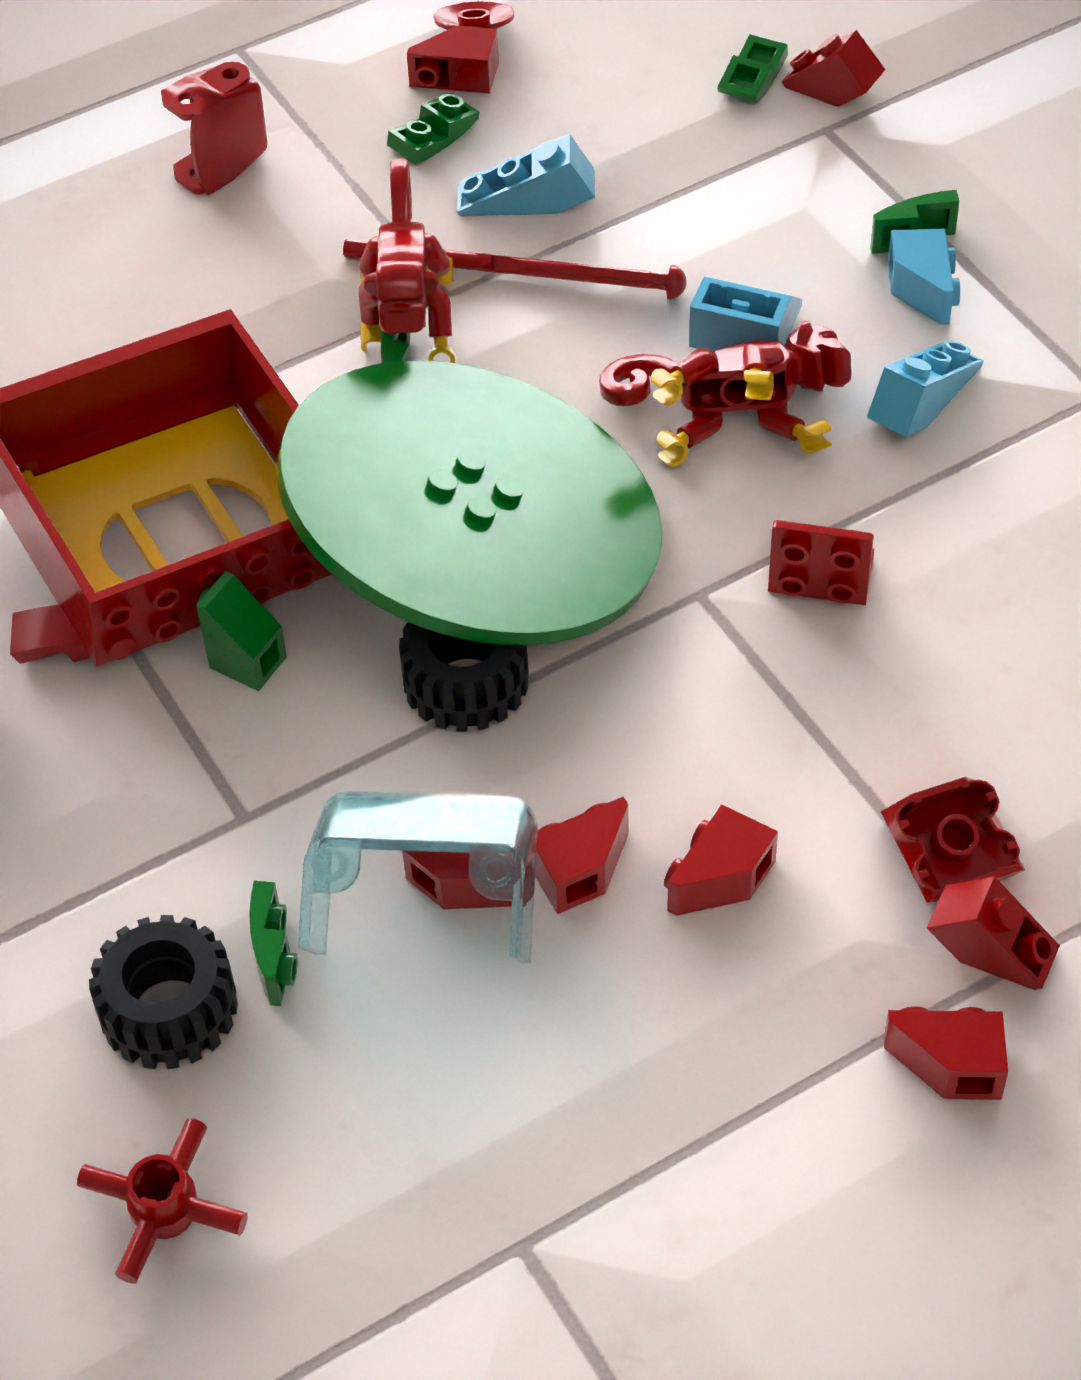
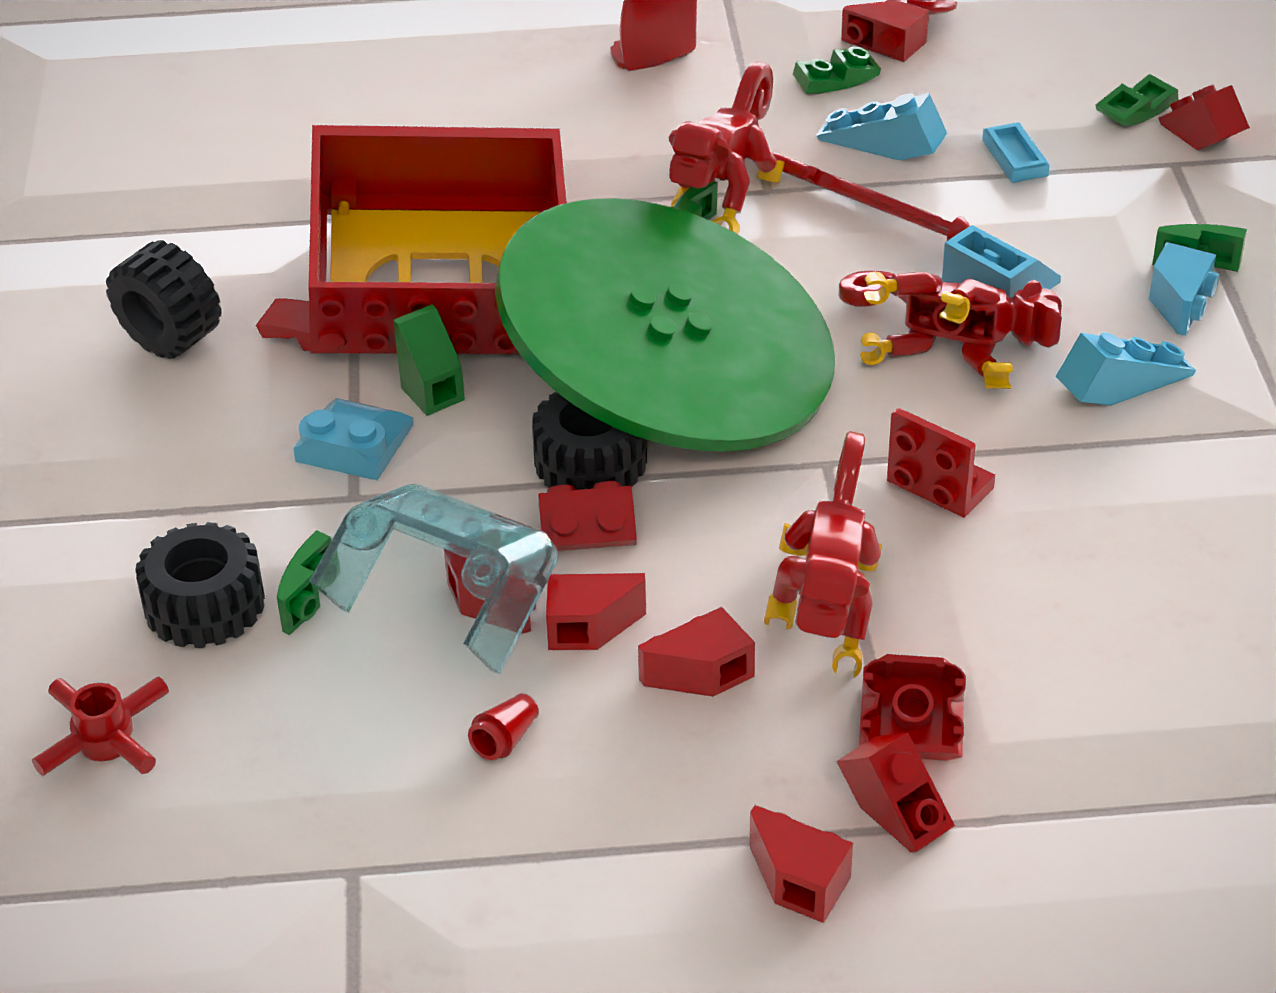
camera: 25 degrees right, 10 degrees down
(200, 749) = (351, 438): none -> medium azure slope
(512, 751) = (588, 516): none -> red bracket
(577, 1024) = (501, 727): none -> red cone
(669, 167) = (1015, 152): none -> medium azure tile
(811, 711) = (836, 545): none -> red animal

